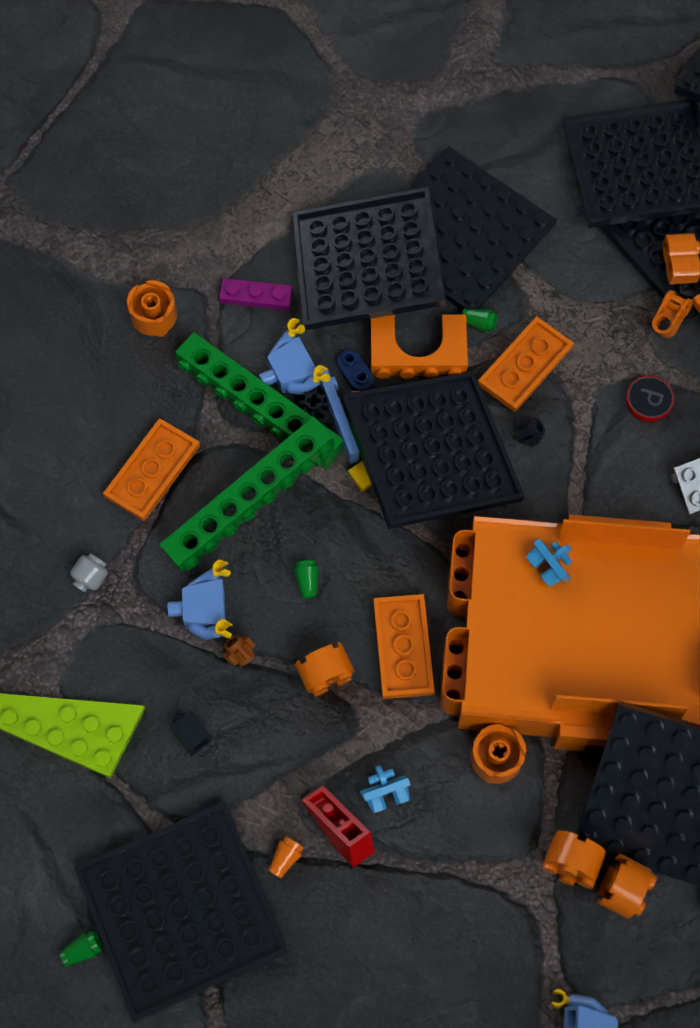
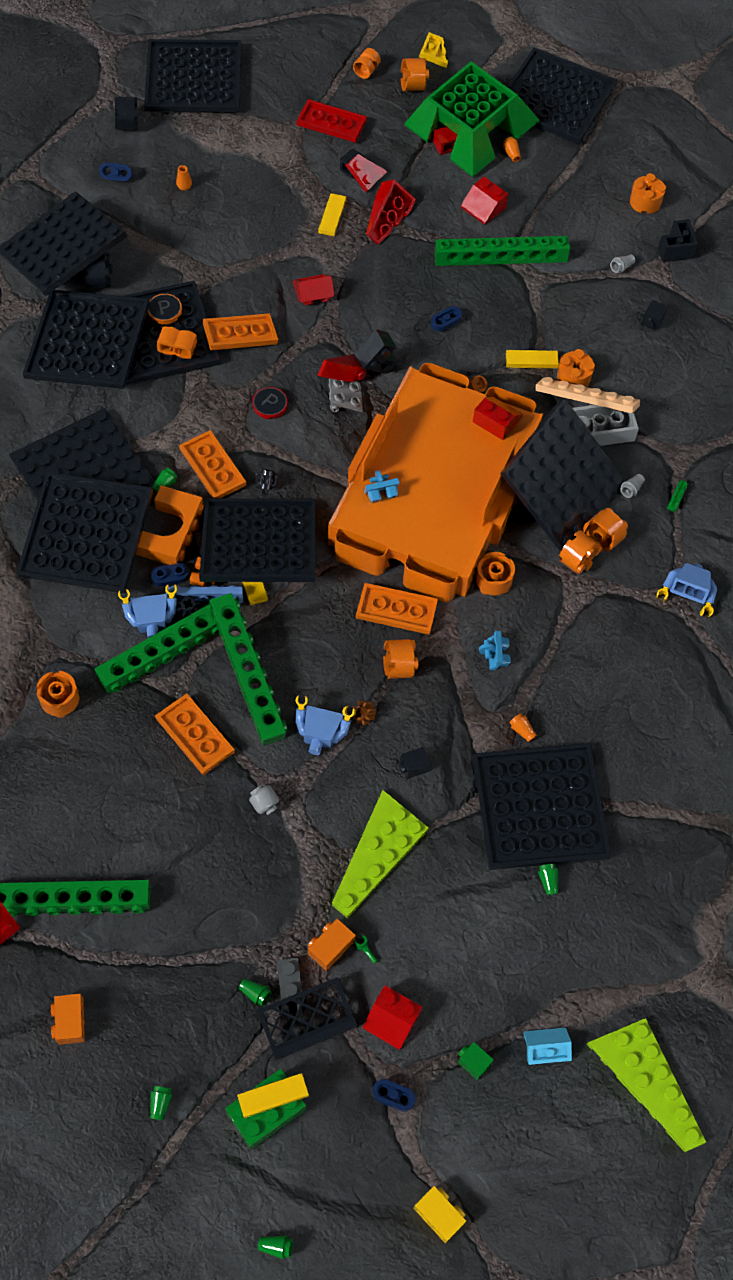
camera: 75 degrees left, 5 degrees down
(255, 294) = (74, 622): magenta plate -> none
(307, 578) = (323, 653): green cone -> none
(340, 826) = (512, 686): red slope -> none
(671, 312) = (213, 362): orange piece -> none

